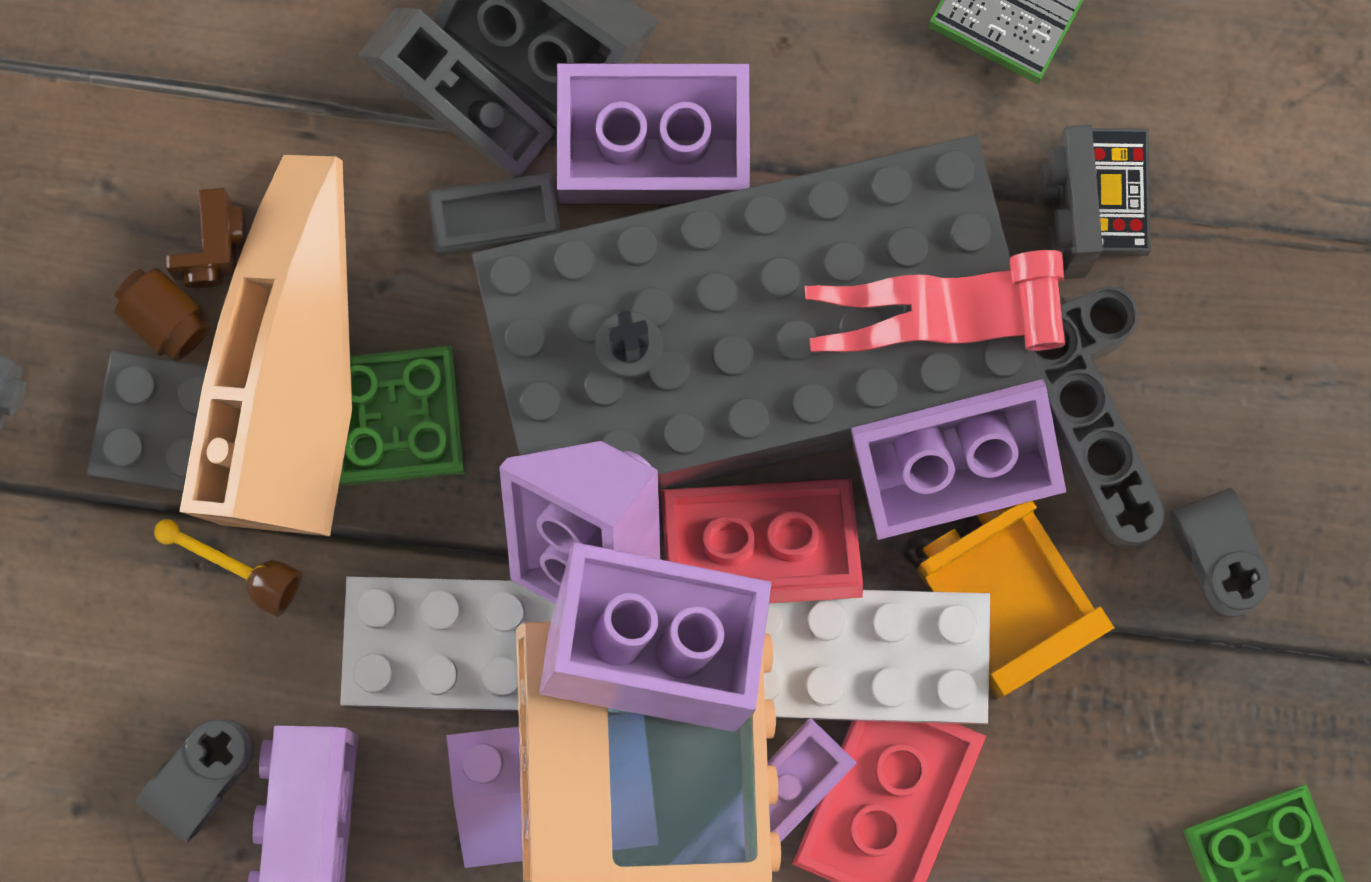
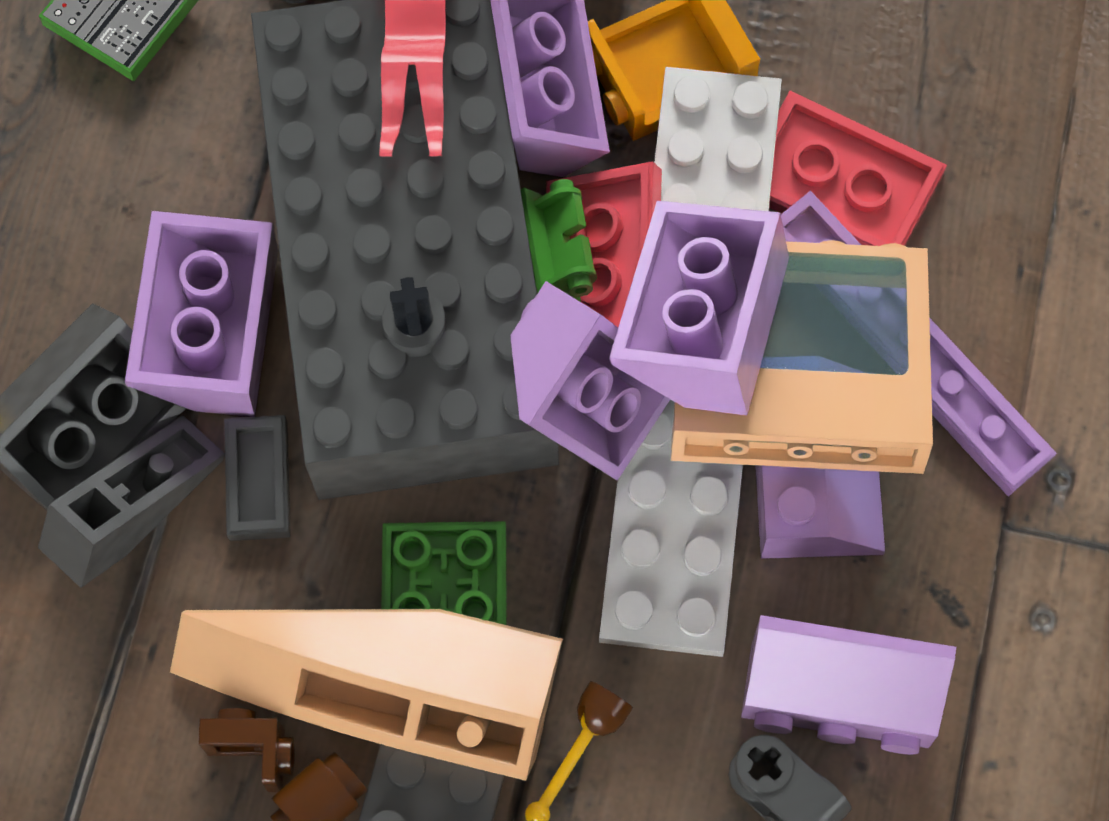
camera: 80 degrees left, 10 degrees down
(739, 492) = (549, 225): none -> bright green hinge

